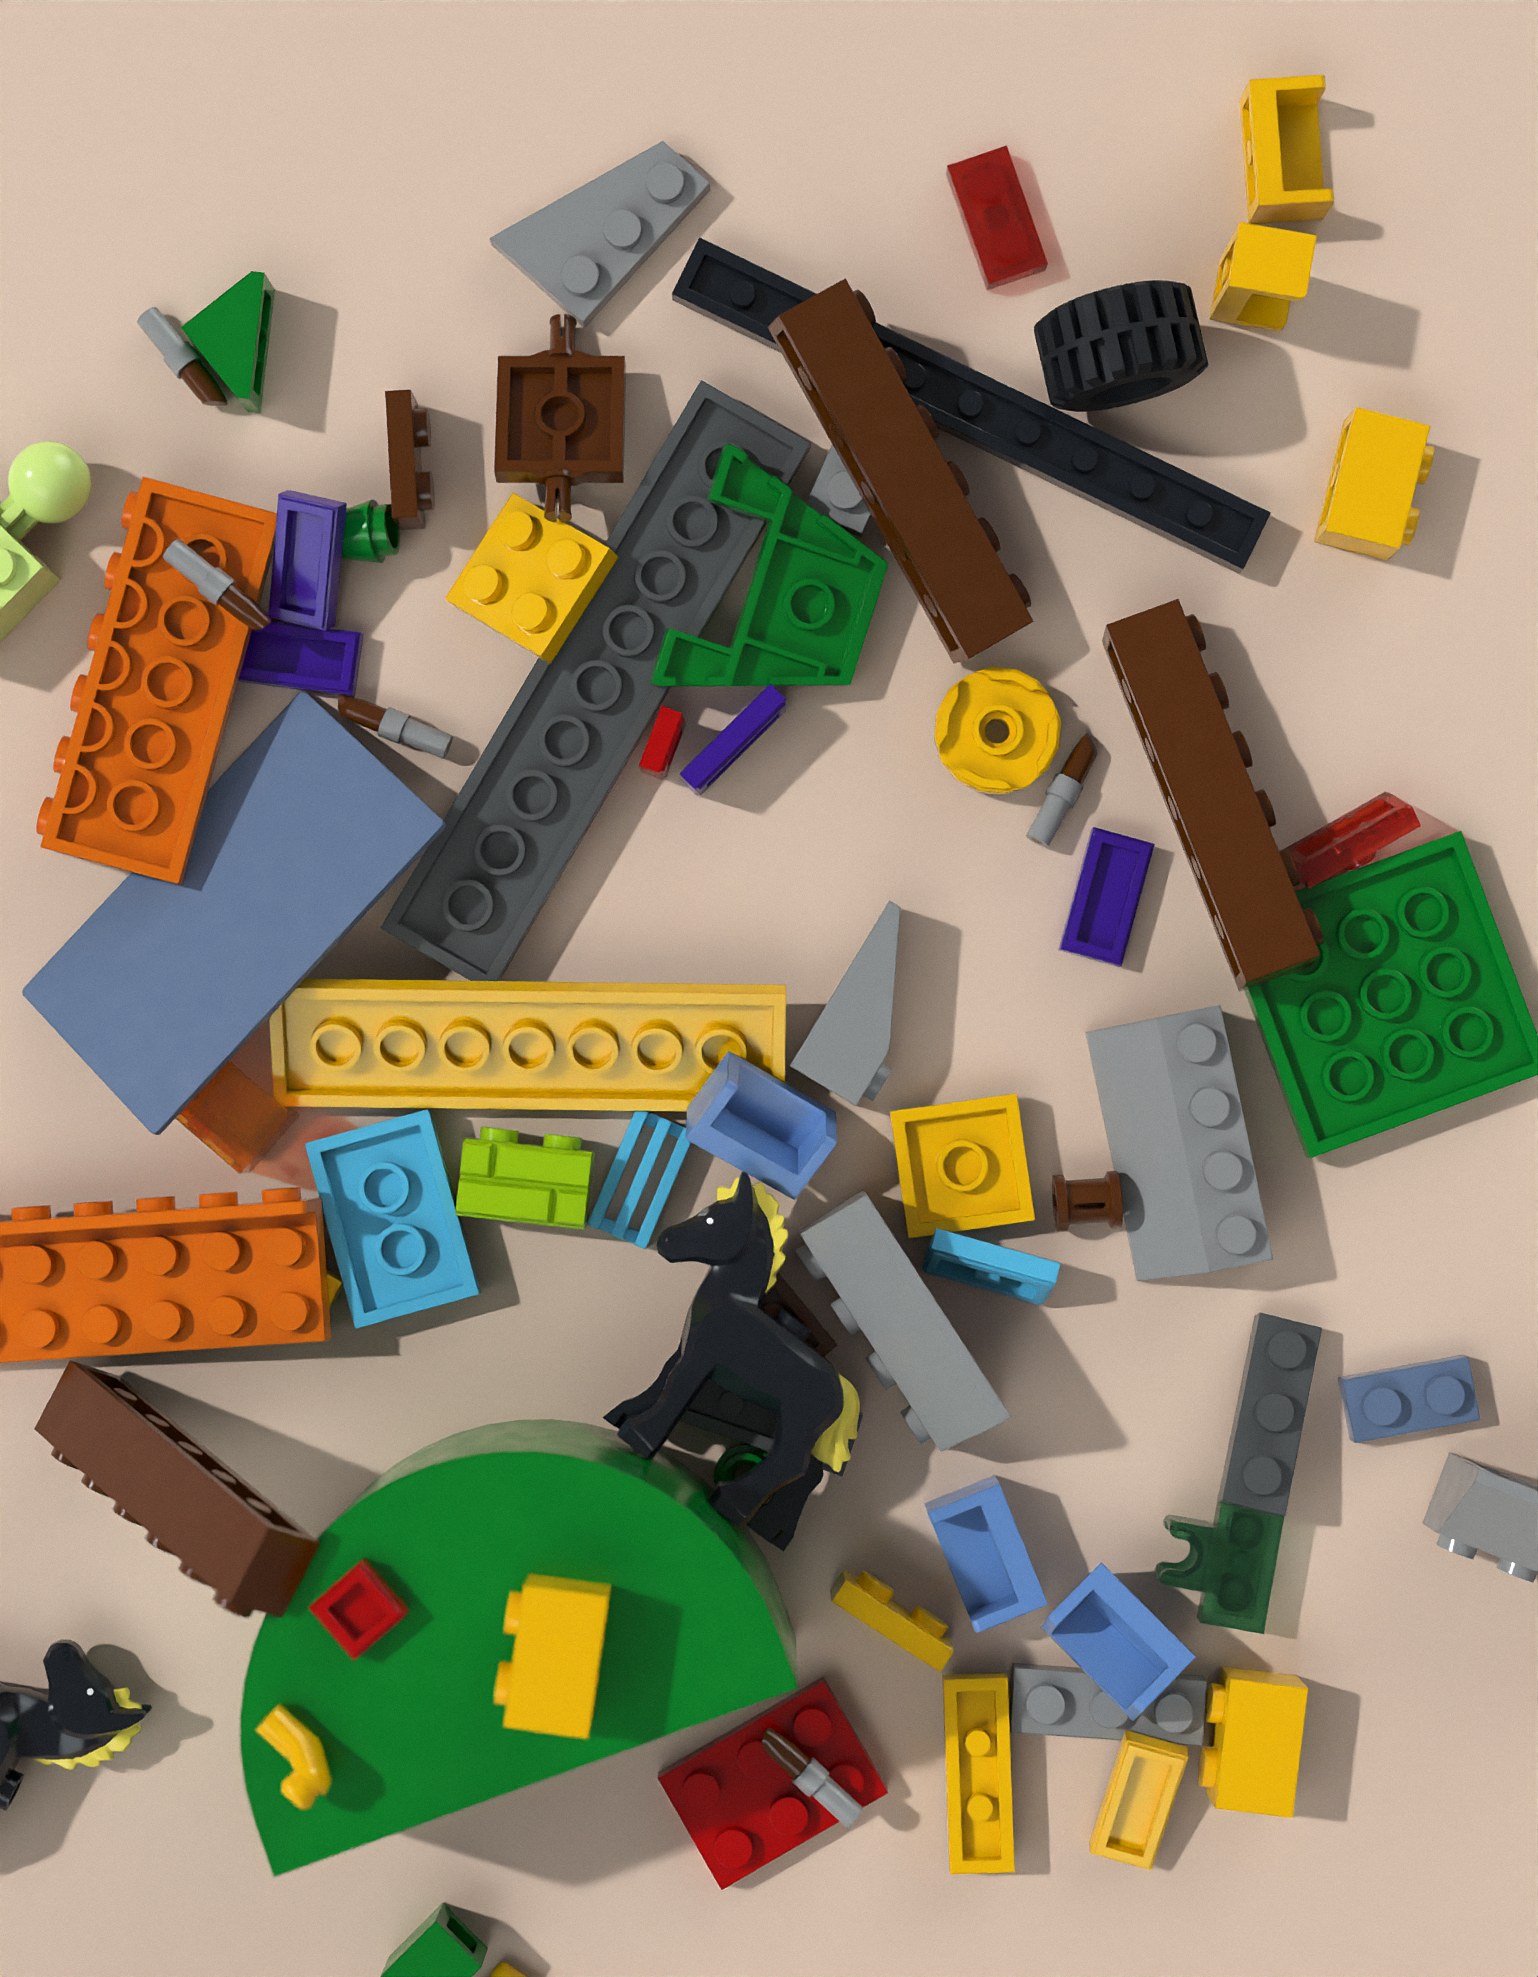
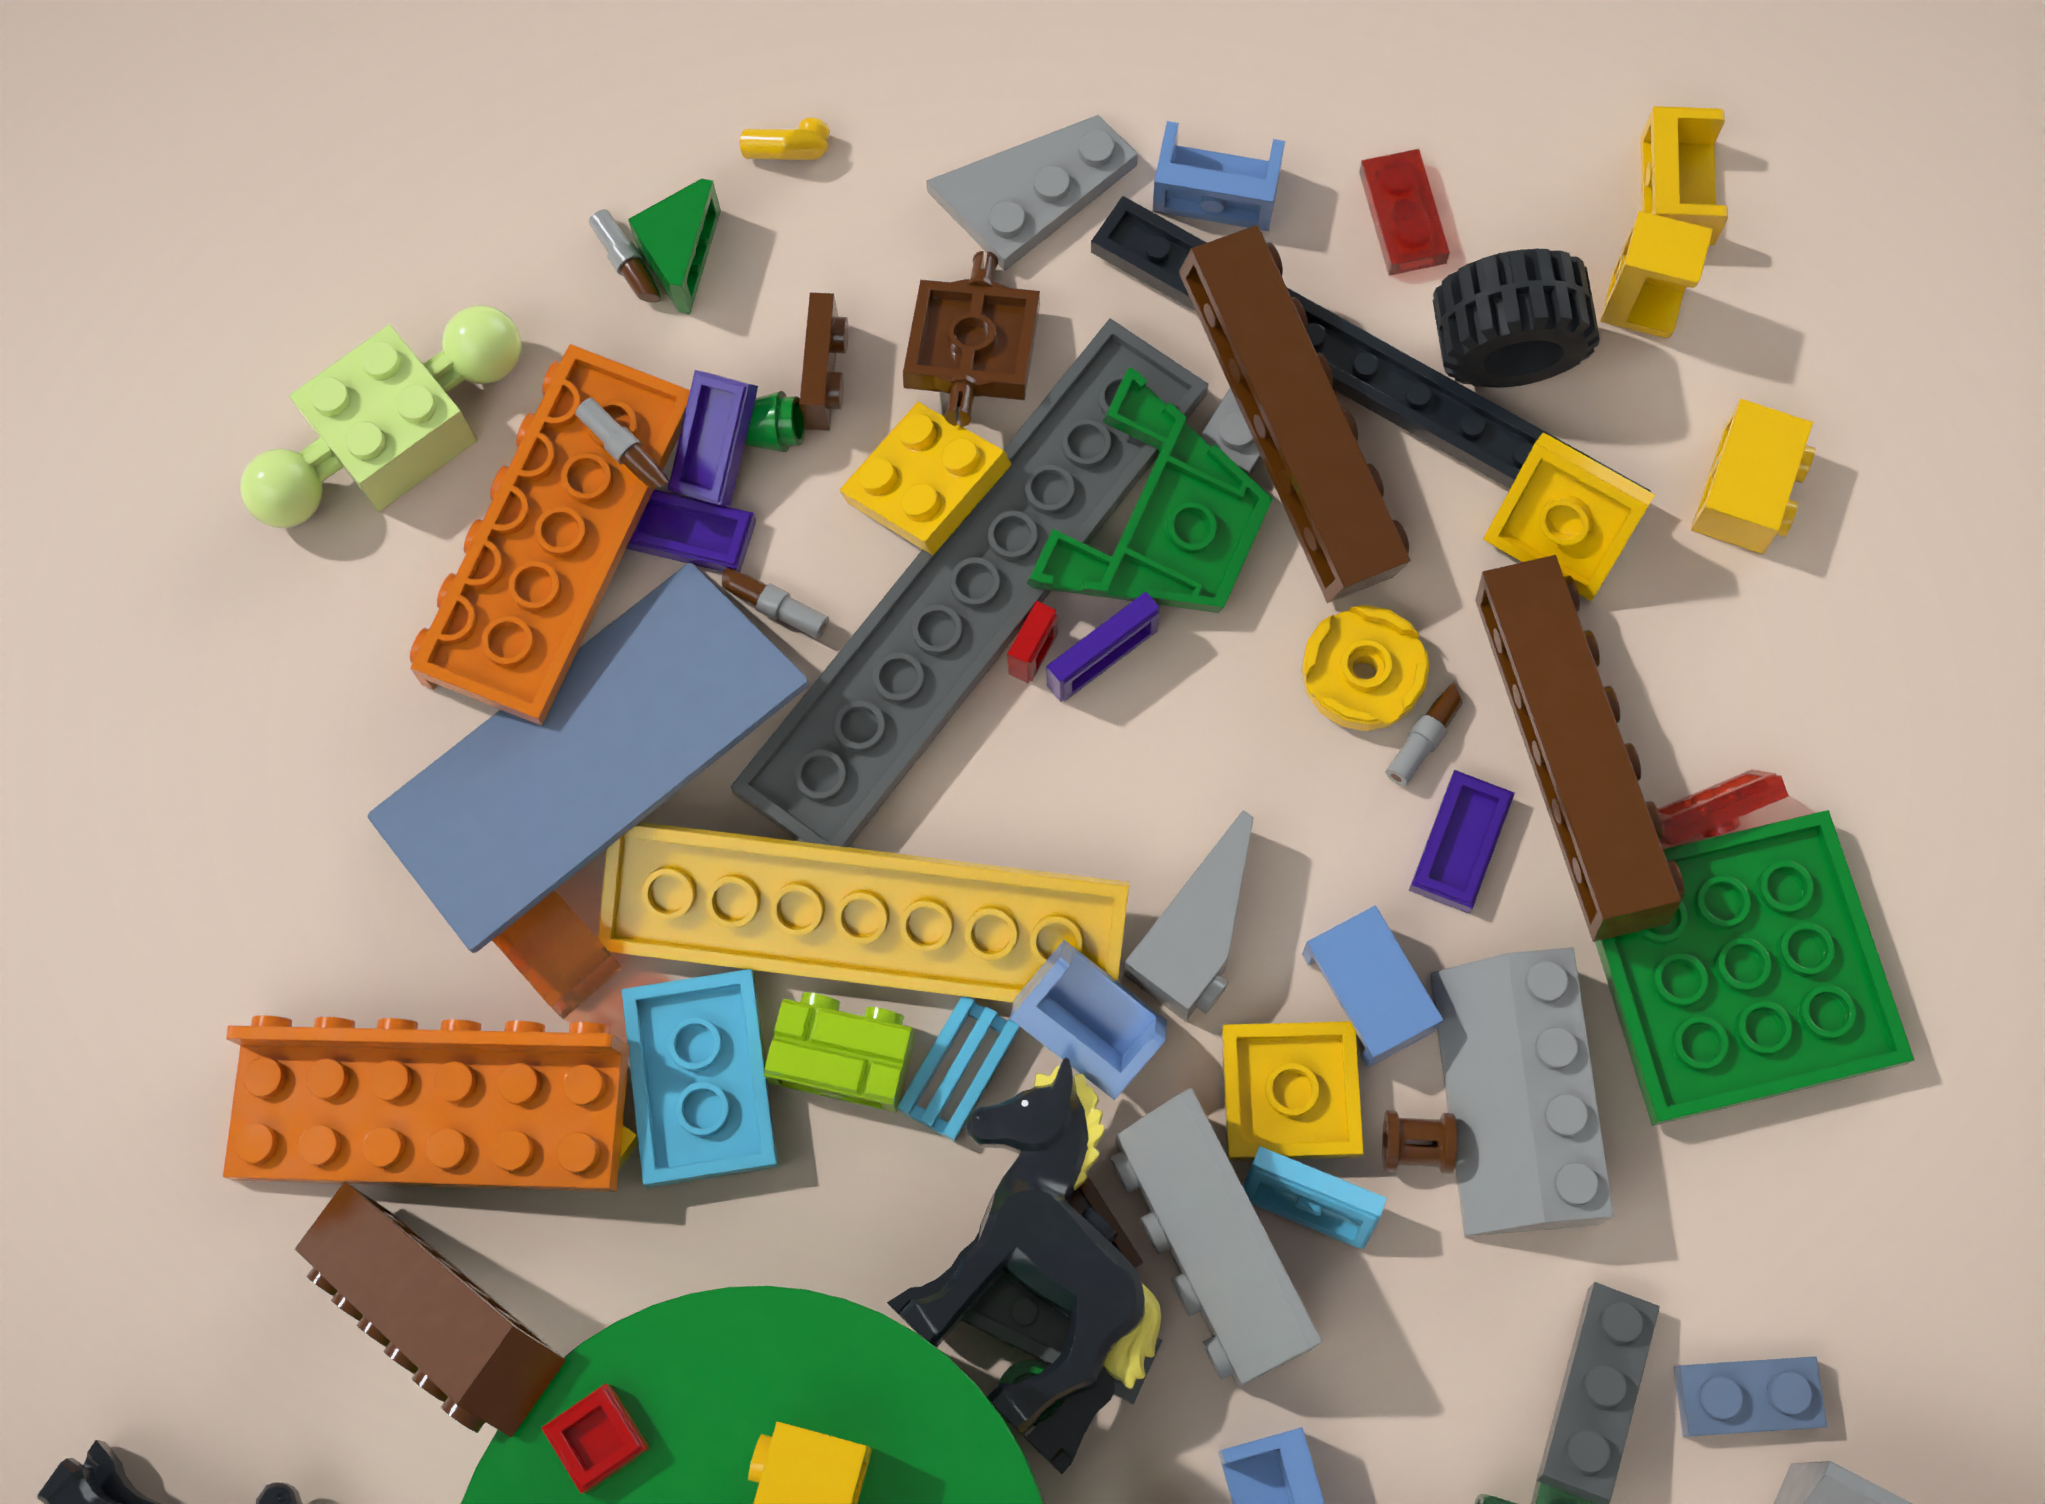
camera: 10 degrees right, 15 degrees down
(331, 212) = (804, 143): none -> yellow arm
(796, 206) = (1215, 183): none -> medium blue panel
(1031, 1056) = (1374, 984): none -> medium blue panel
(1188, 553) = (1568, 510): none -> yellow plate

